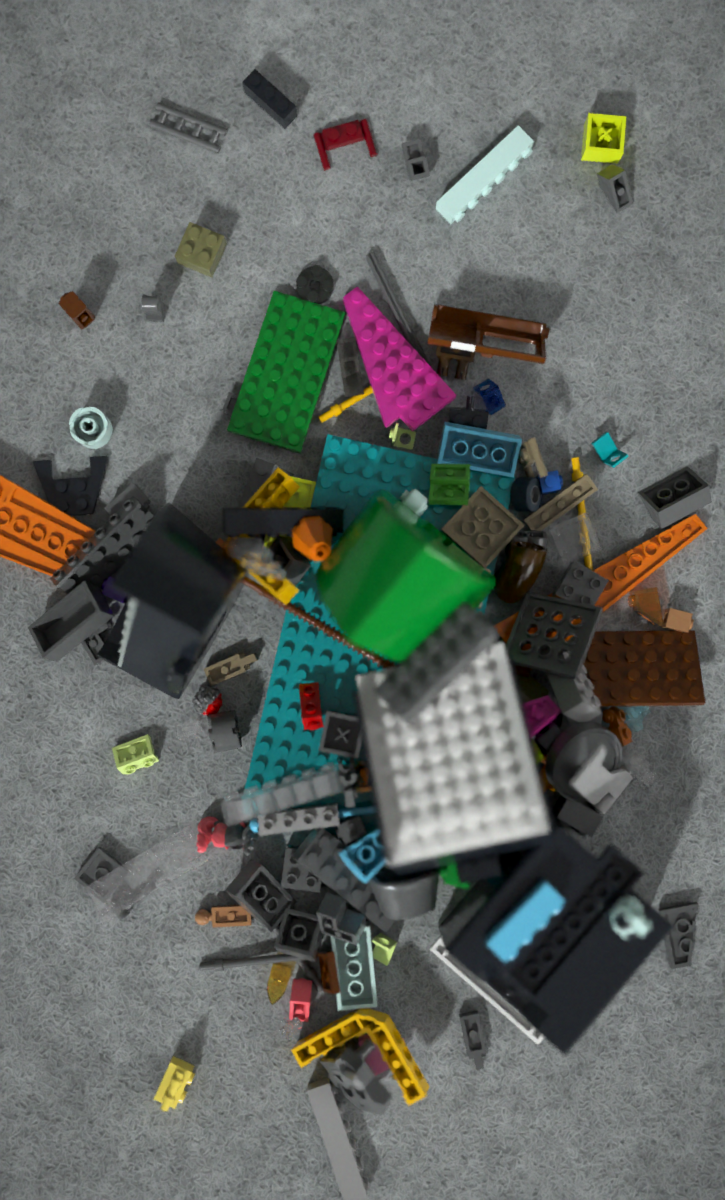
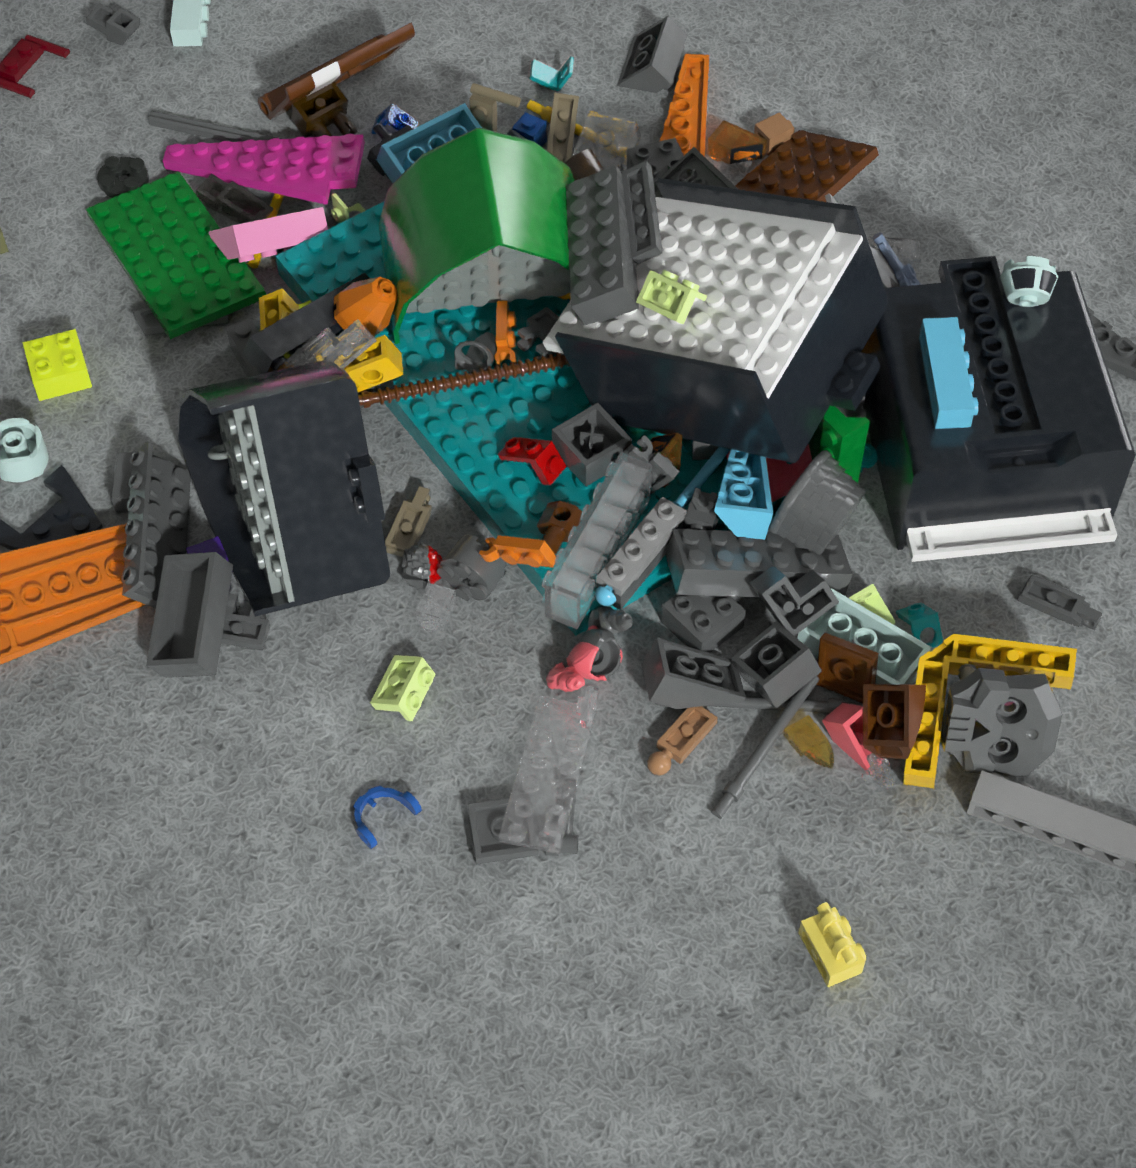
camera: 50 degrees left, 30 degrees down
(77, 814) = (405, 798): none -> blue piece
(160, 389) = (57, 364): none -> neon yellow brick
(235, 761) = (520, 551): none -> orange plate
(273, 763) = (553, 528): none -> reddish brown piece
(315, 1025) = (892, 718): none -> reddish brown slope
(340, 415) = (269, 234): none -> bright pink slope
(399, 976) = (920, 617): none -> teal bracket
(423, 744) = (668, 296): none -> yellowish green bracket
(476, 668) = (642, 212): none -> dark grey plate
(623, 792) = (904, 273): none -> sand blue piece

